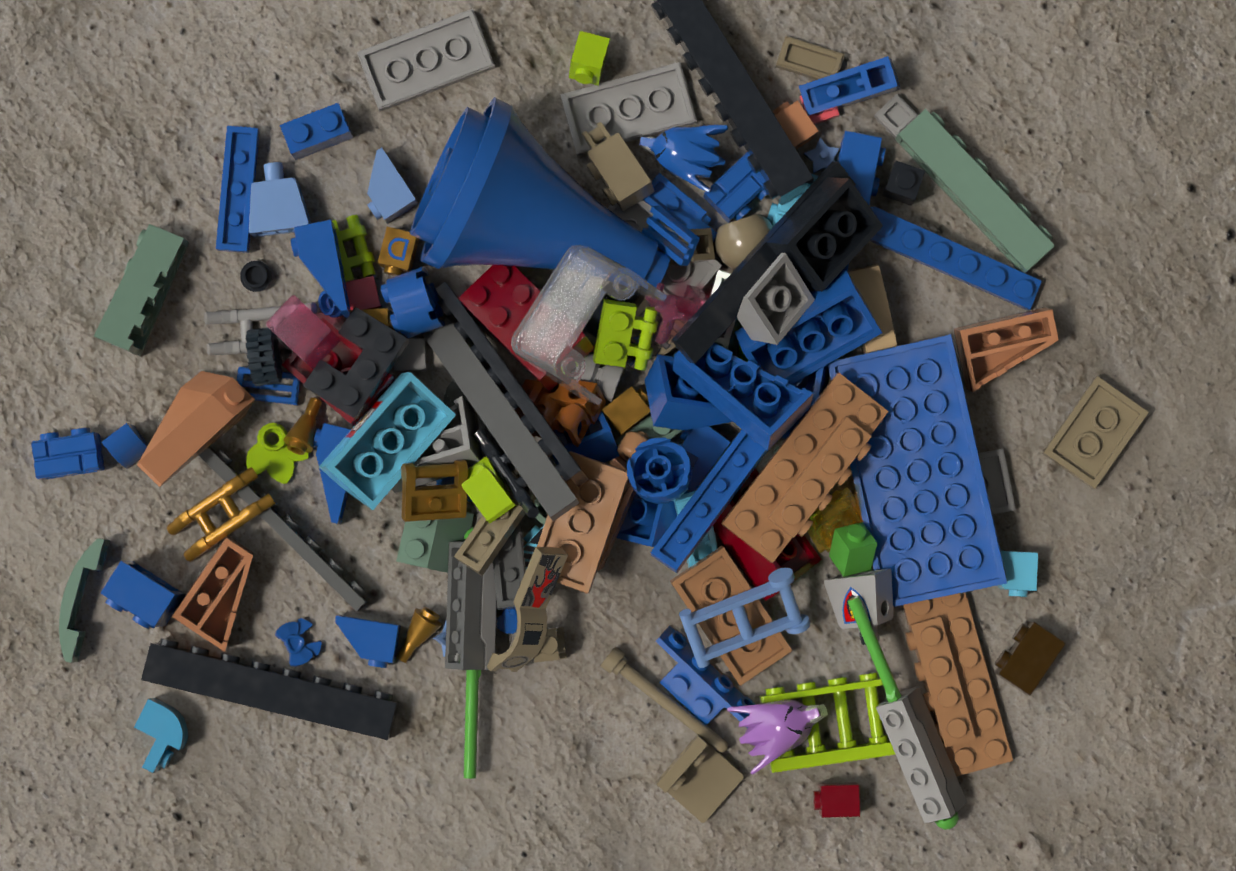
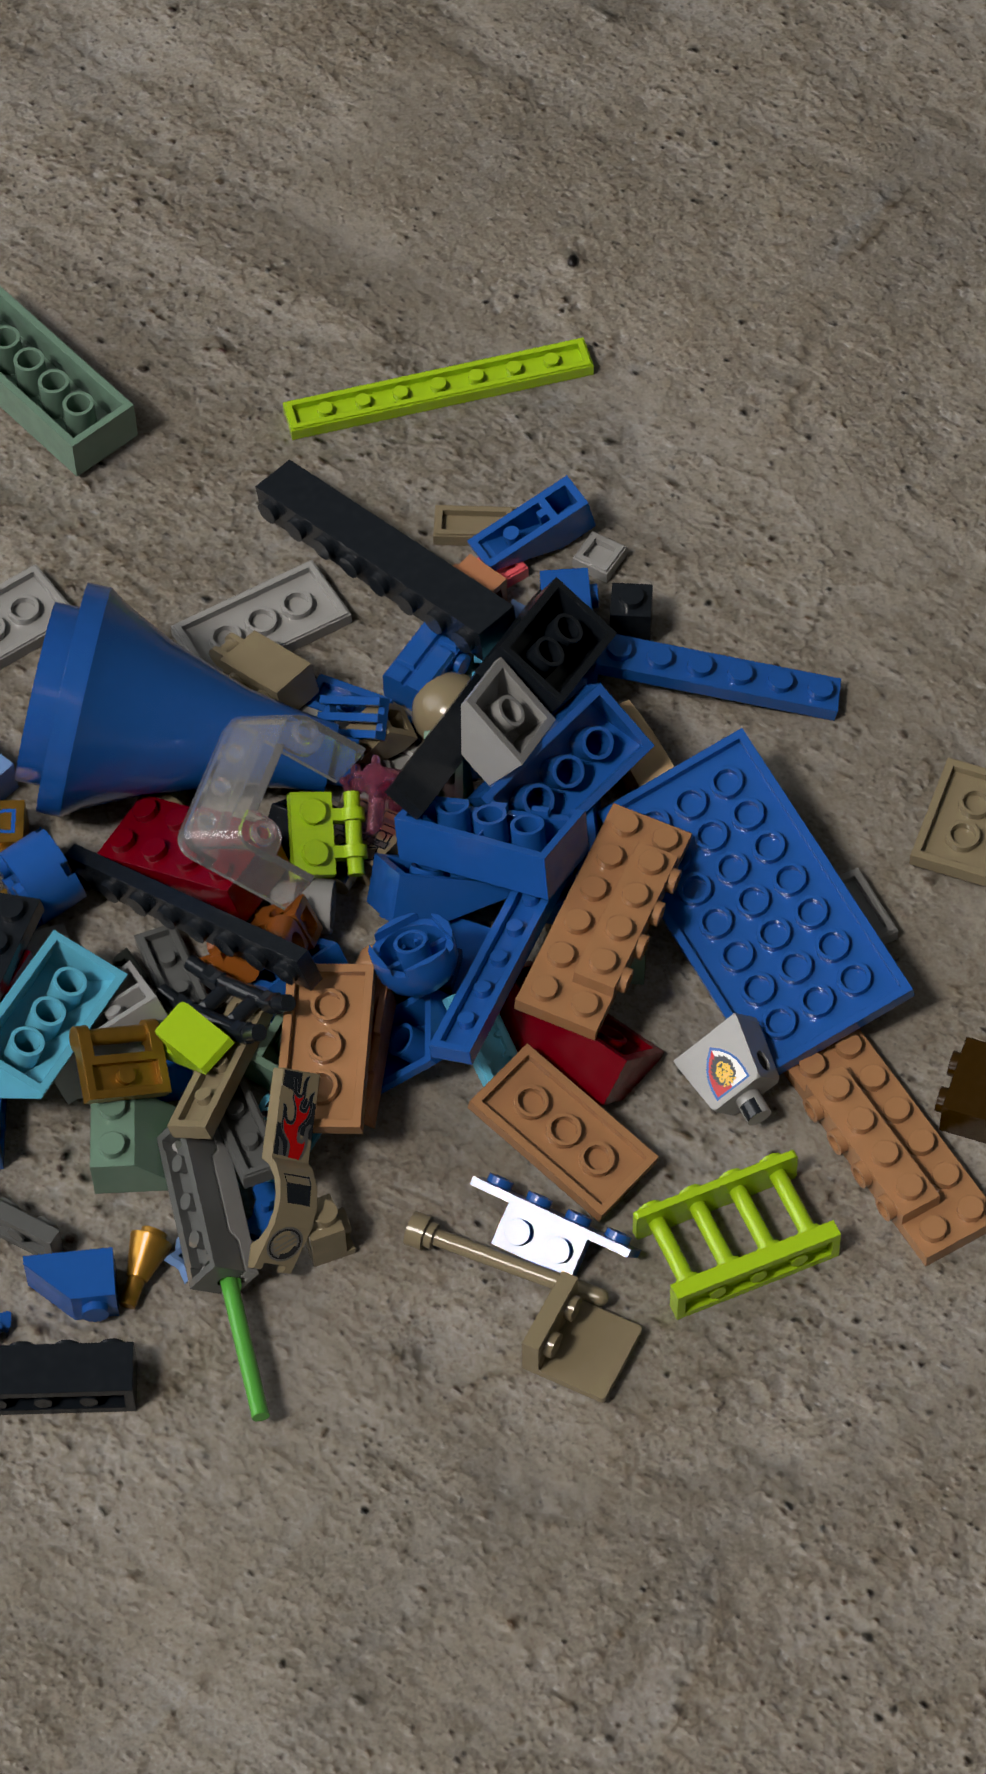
camera: 15 degrees left, 30 degrees down
(501, 420) = (189, 958): dark grey tile -> none
(589, 58) = (196, 575): lime brick -> none
(627, 410) = (353, 929): pearl gold brick -> none
(687, 152) = (349, 638): blue piece -> none
(777, 727) = (663, 1230): medium lavender piece -> none
(793, 623) = (609, 1054): medium blue piece -> none
(837, 800) = (779, 1321): dark red brick -> none
(838, 513) = (646, 996): clear yellow piece -> none
(852, 549) = (697, 1009): bright green brick -> none
(914, 738) = (855, 1207): piece -> none
(975, 191) = (725, 604): sand green brick -> none
(1001, 343) = (818, 743): nougat wedge -> none
(1020, 572) = (933, 1001): medium azure slope -> none

